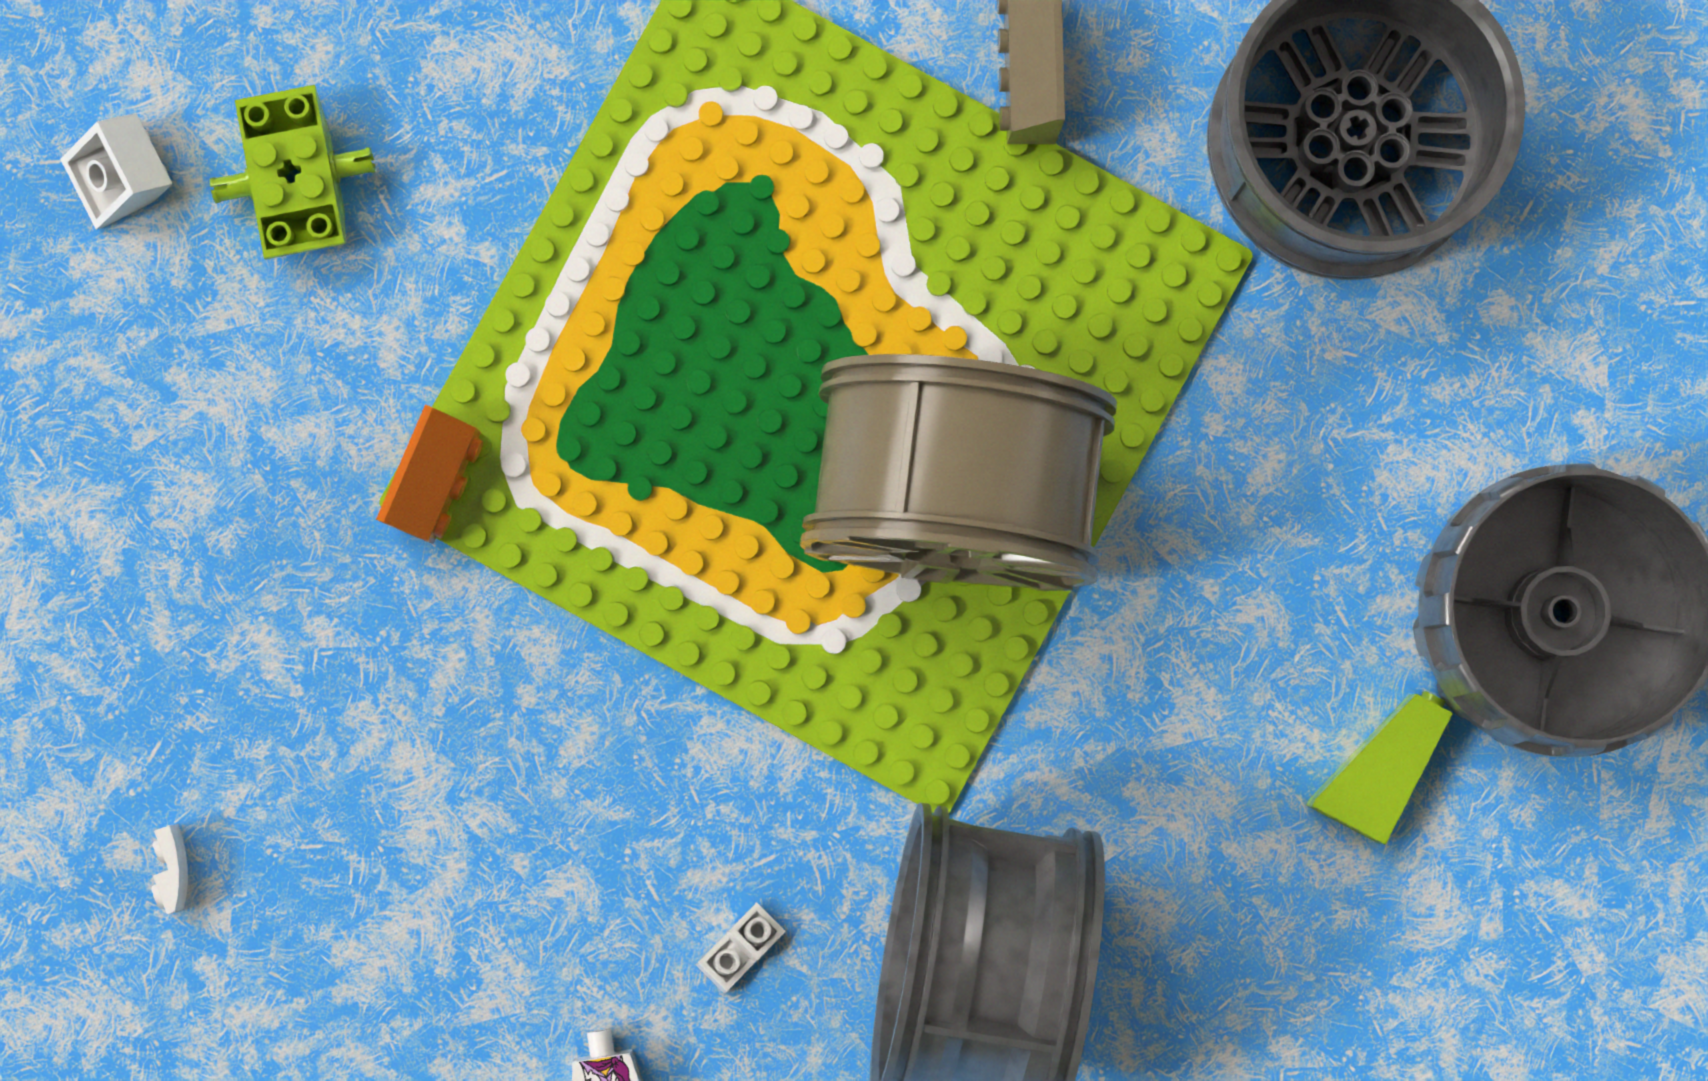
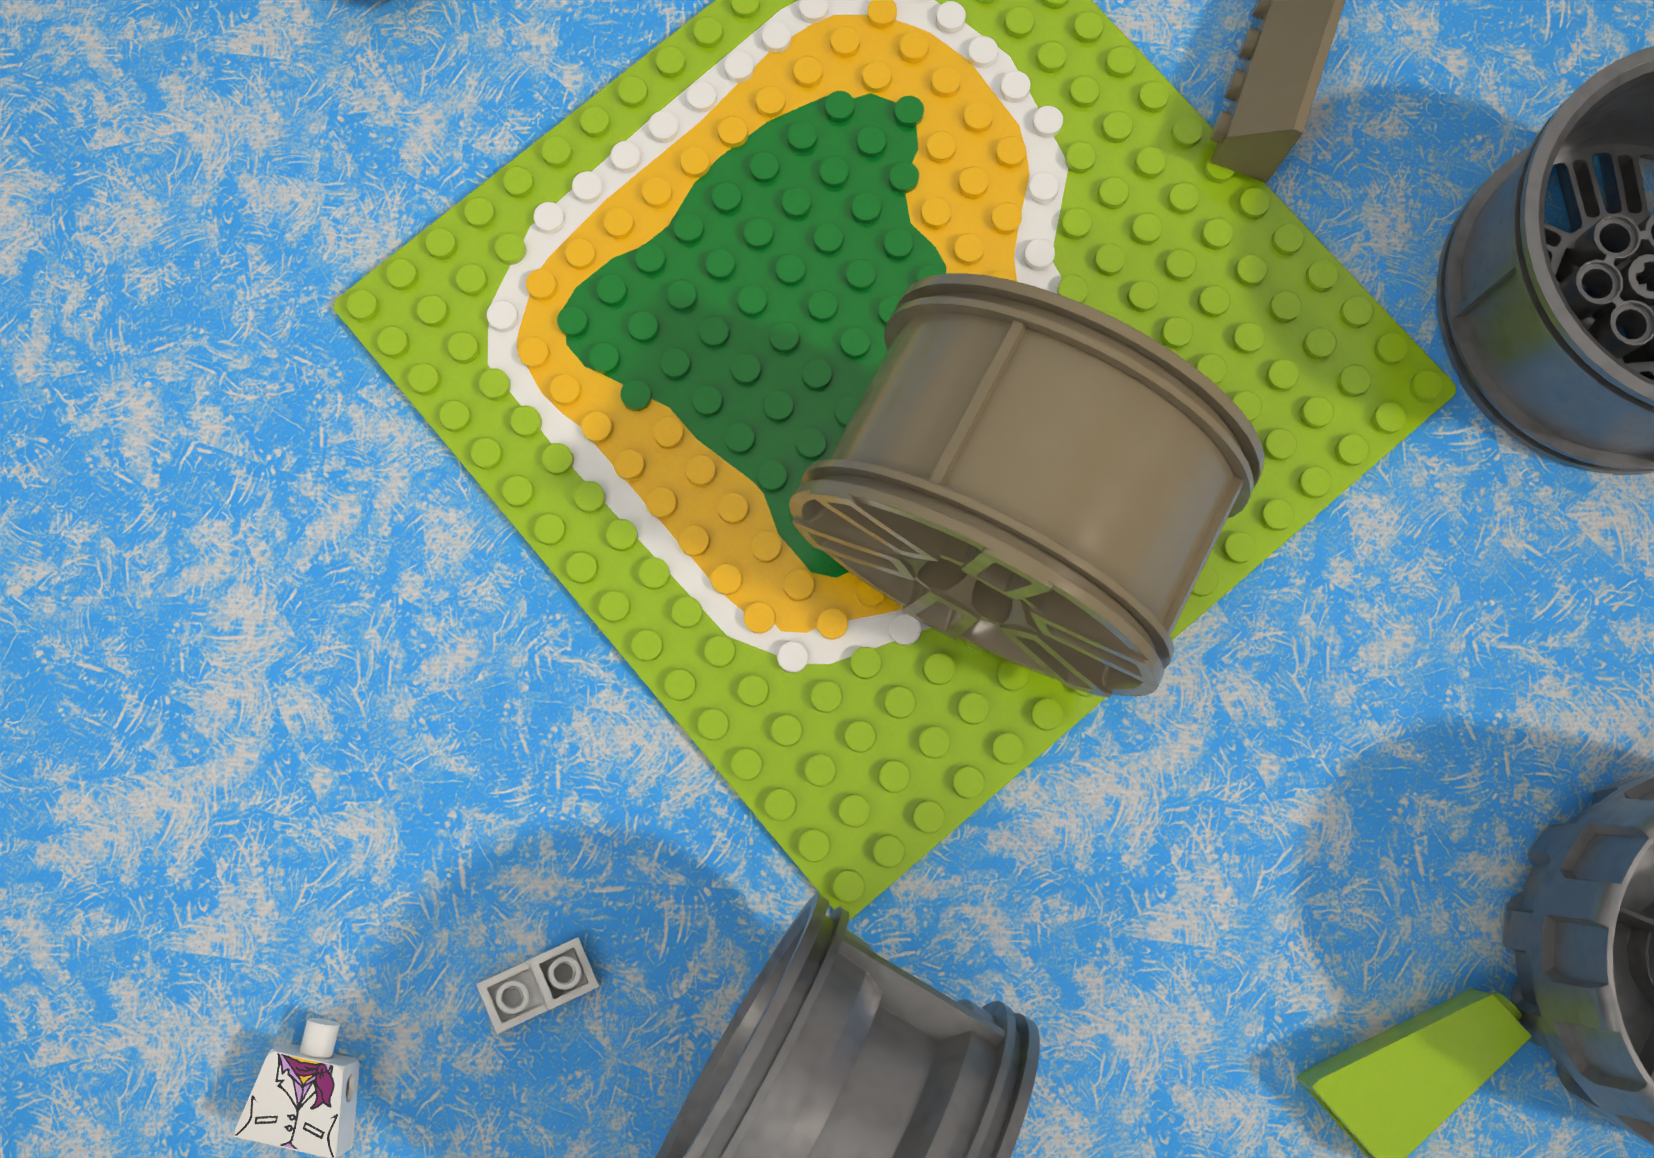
camera: 25 degrees right, 5 degrees down
(430, 475) = (391, 279): orange slope -> none

